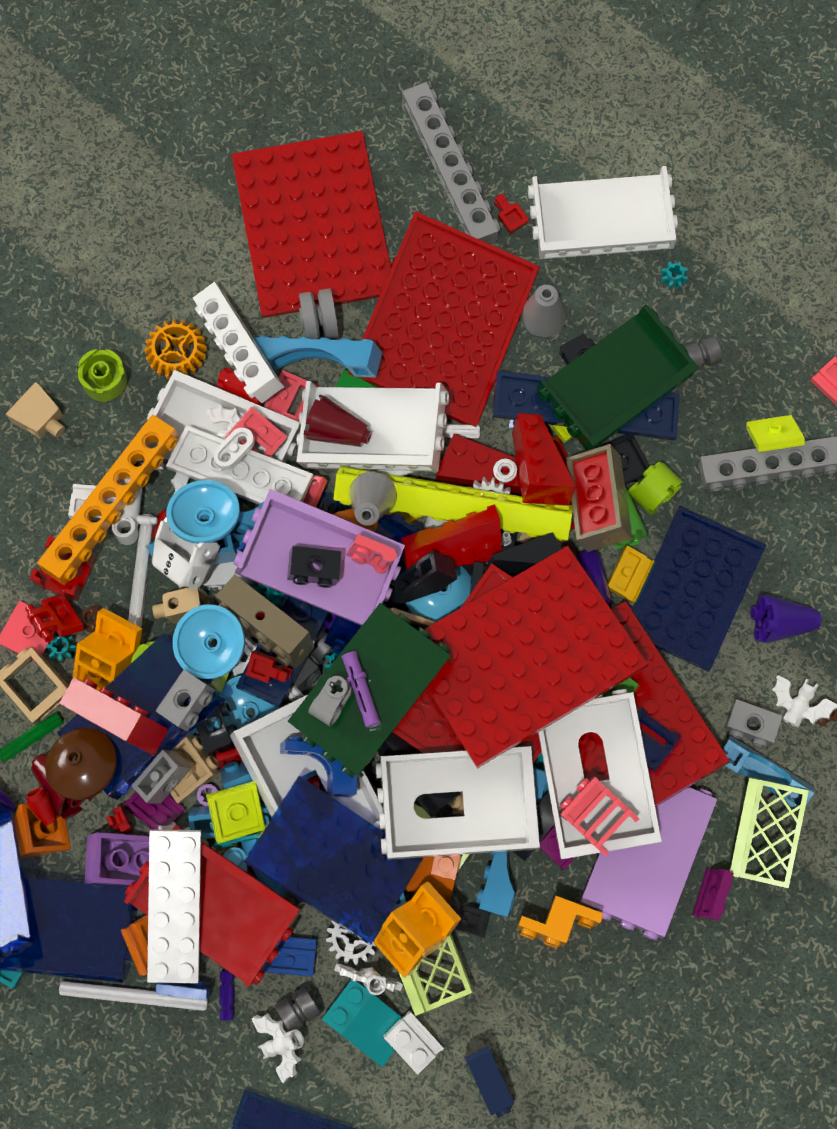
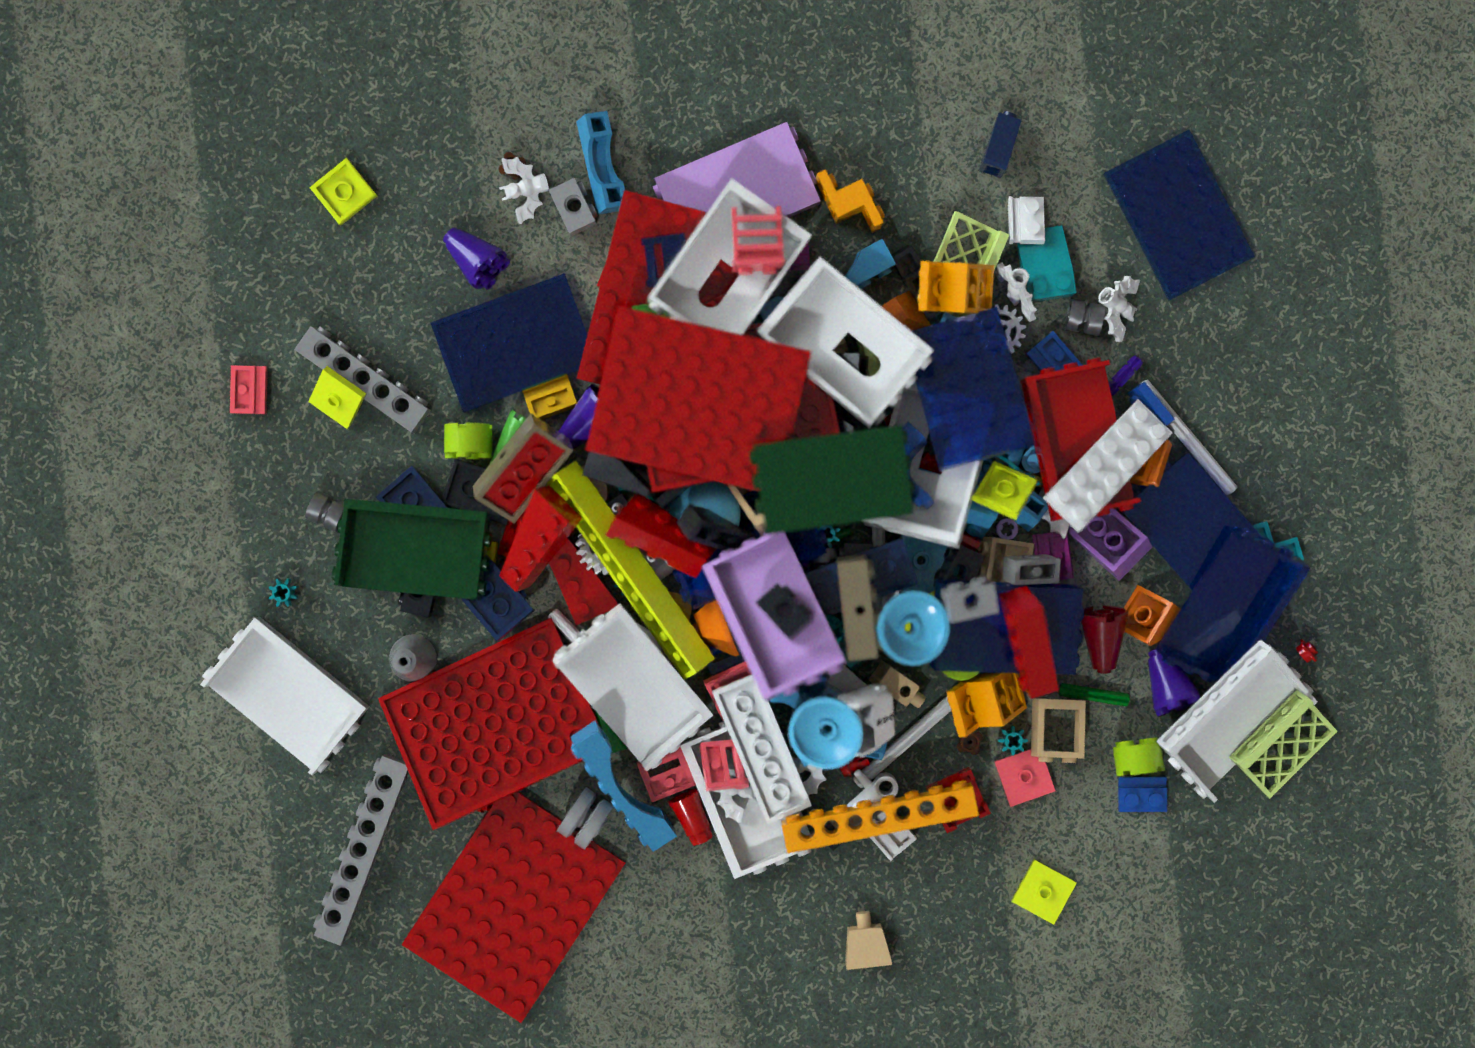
camera: 135 degrees left, 15 degrees up
(41, 805) = (1134, 630): red cone -> none
(60, 615) = (992, 763): red plate -> none
(90, 771) = (1074, 618): reddish brown dish -> none
(114, 376) = (802, 935): lime brick -> none
(119, 821) = (1086, 569): red plate -> none
(162, 362) = (704, 897): light orange gear -> none
(232, 448) = (751, 767): white plate -> none
(238, 343) = (676, 797): white brick -> none
(264, 669) = (888, 574): red plate -> none
(330, 702) = (874, 494): light grey piece -> none
(335, 424) = (658, 712): dark red cone -> none
(360, 688) = (842, 482): medium lavender pin -> none
(364, 551) = (736, 585): coral plate -> none
(372, 497) = (691, 626): light grey cone -> none
(501, 464) = (575, 554): white plate -> none
(510, 215) = (357, 760): red plate -> none
(713, 894) = (723, 118): magenta plate -> none
(747, 826) = (653, 139): yellowish green fence -> none

